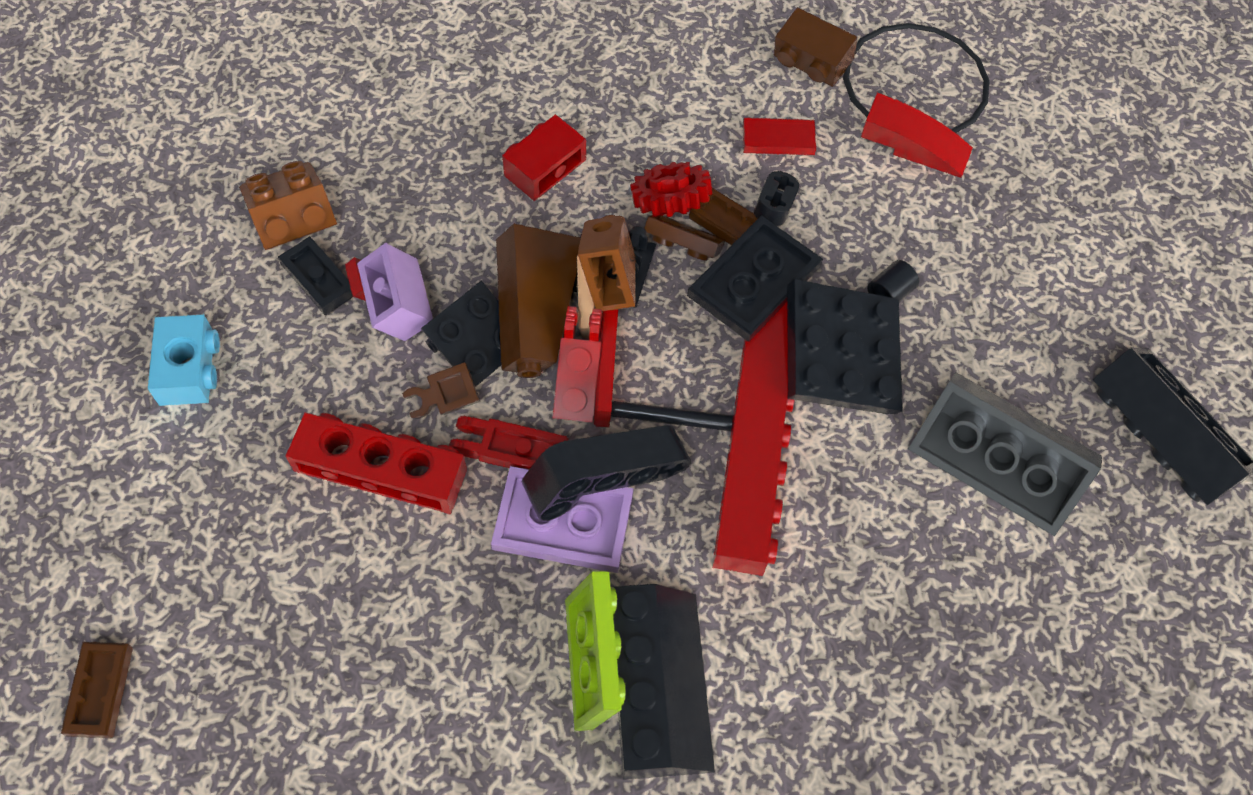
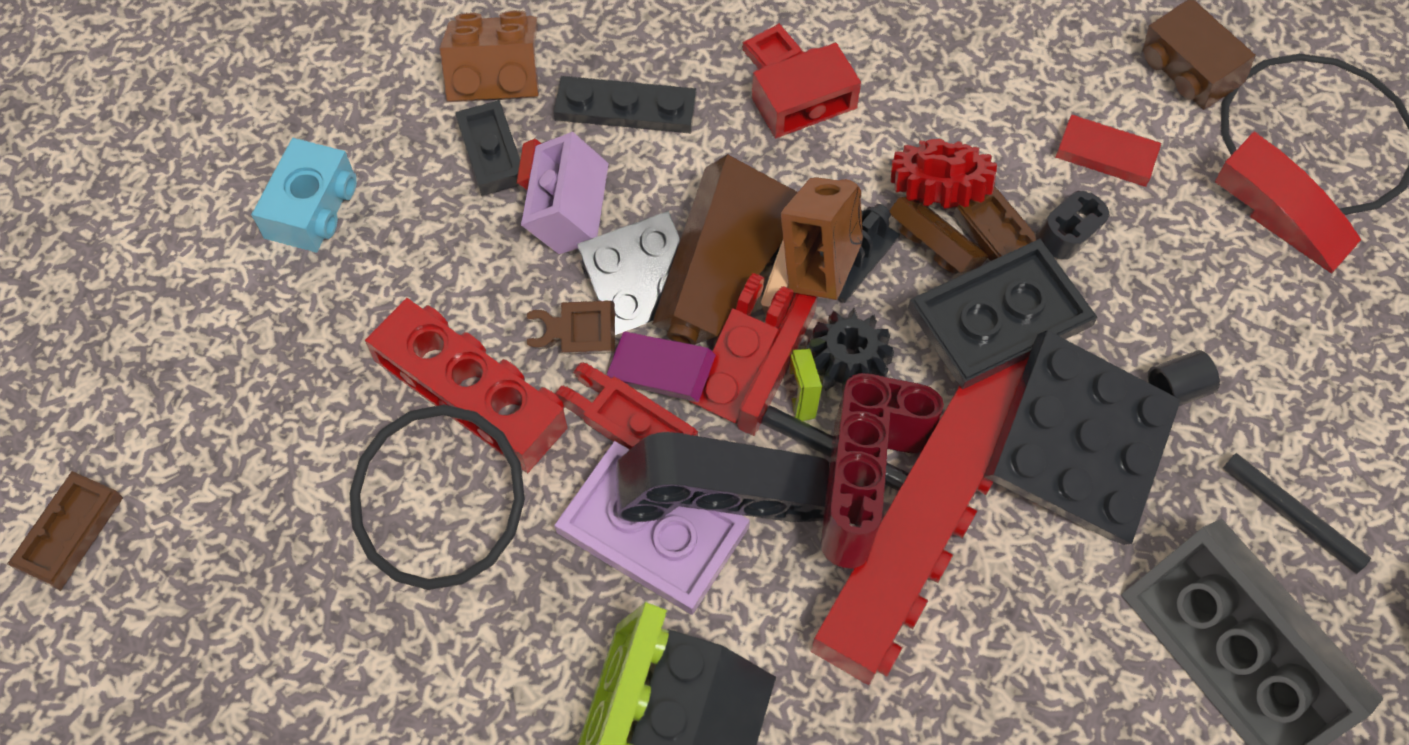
camera: 25 degrees right, 0 degrees up
(322, 556) = (499, 547): none -> black piece
(409, 209) = (625, 104): none -> black plate
(504, 133) = (771, 47): none -> red tile
(522, 398) = (662, 366): none -> magenta tile
(636, 376) = (808, 382): none -> lime tile
(643, 349) = (833, 339): none -> black gear
(691, 391) = (871, 418): none -> dark red beam
(1000, 351) = (1297, 513): none -> black bar

